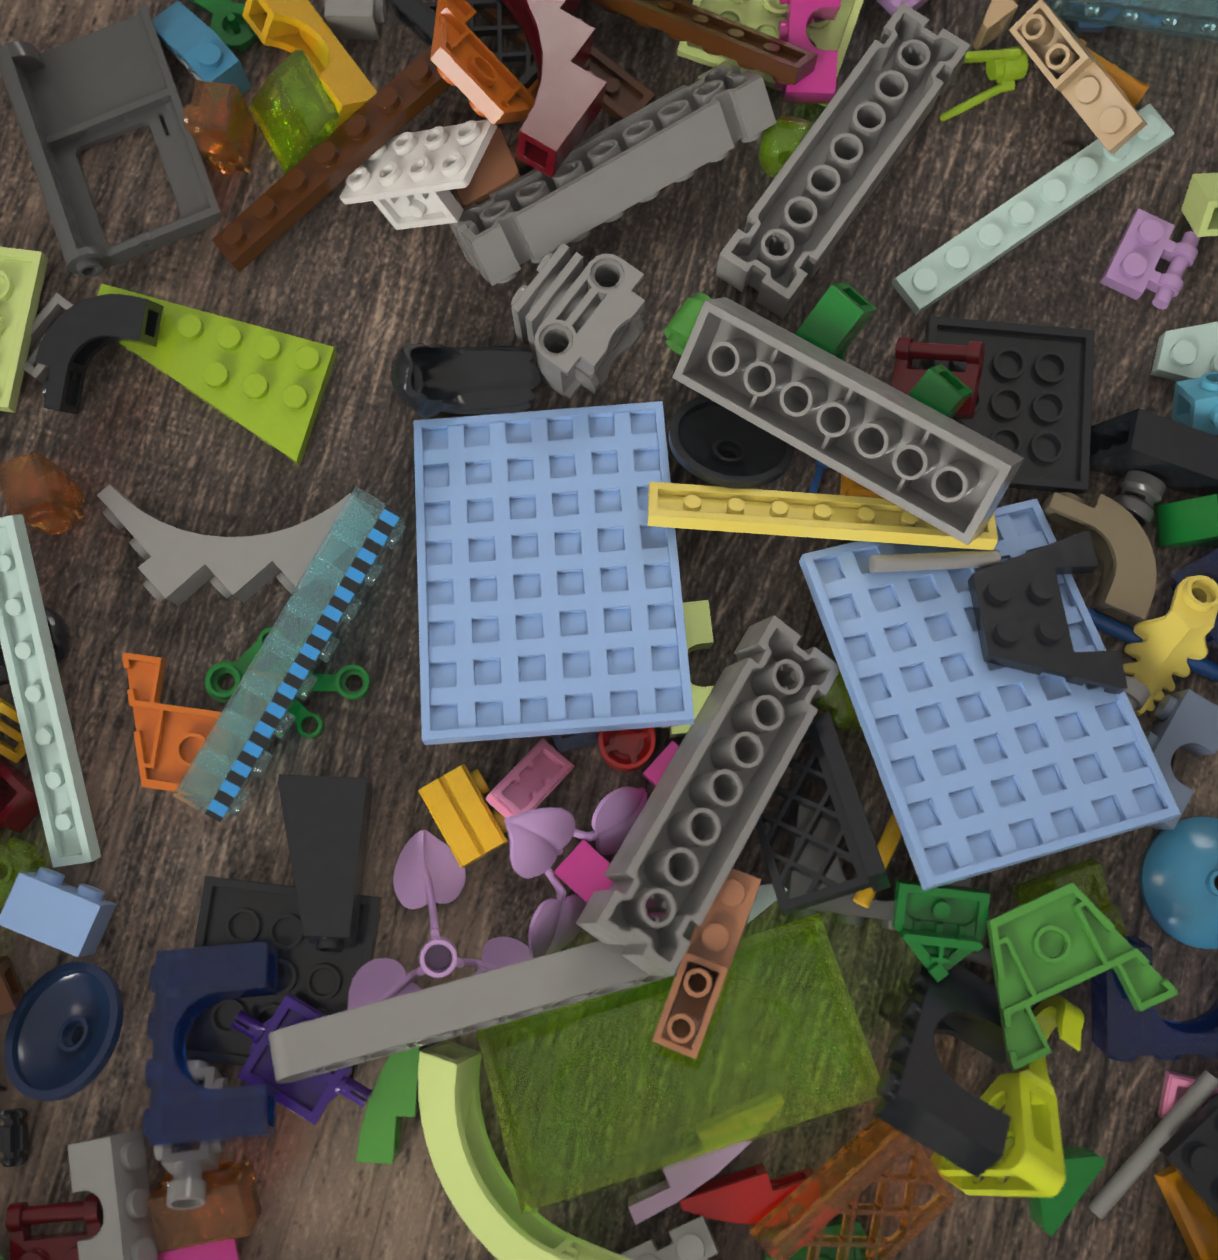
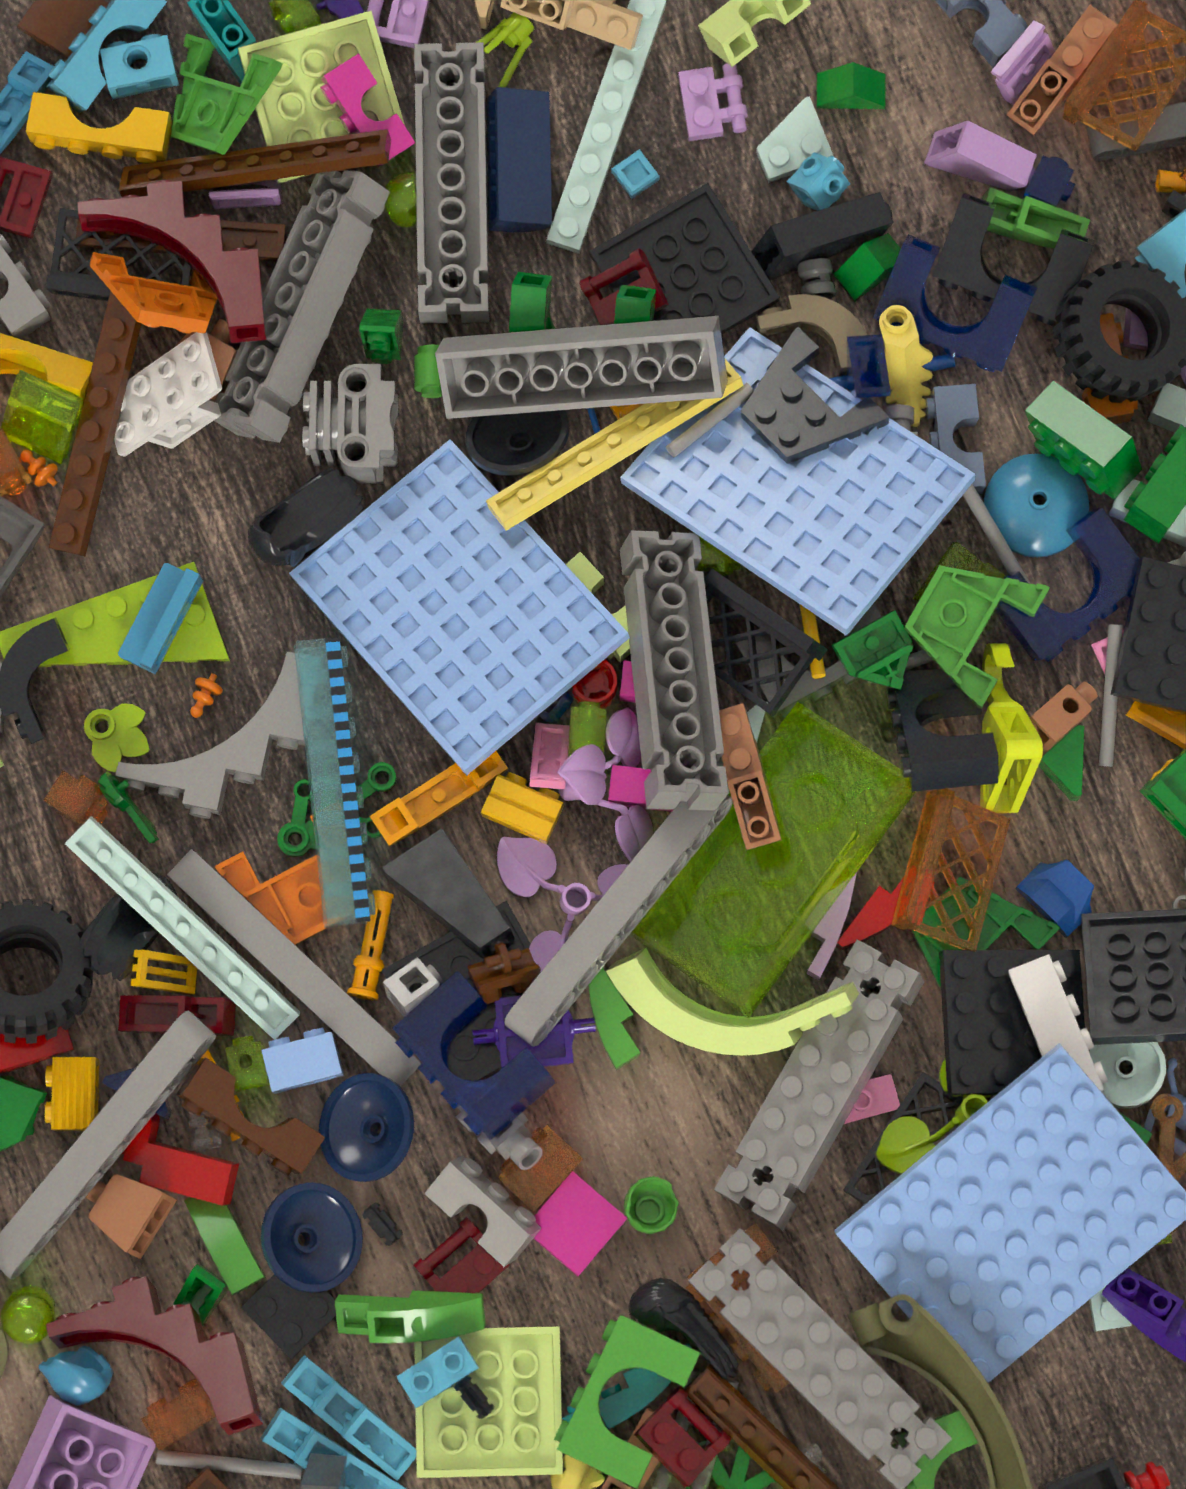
camera: 35 degrees left, 0 degrees up
(87, 517) = (119, 798): none -> green piece
(122, 810) = (292, 968): none -> light grey beam
(139, 465) = (120, 739): none -> lime plate
(204, 864) = (363, 962): none -> light orange pin
(204, 910) = (406, 980): none -> light grey brick
(246, 481) = (203, 697): none -> orange hair
(257, 376) = (160, 617): none -> dark azure panel
(261, 164) = (37, 466): none -> orange hair
(313, 977) = (502, 970): none -> reddish brown hips
(380, 741) = (434, 799): none -> light orange slope
(583, 786) = (587, 726): none -> clear neon green slope
(639, 47) = (246, 195): none -> lavender slope
(668, 254) = (382, 334): none -> green slope
(923, 185) = (519, 160): none -> dark blue brick
(1026, 276) = (635, 174): none -> medium azure tile
(1096, 1131) = (1063, 713): none -> nougat torso
(1136, 620) = (867, 367): none -> clear blue slope
(1146, 881) = (992, 531): none -> light grey bar

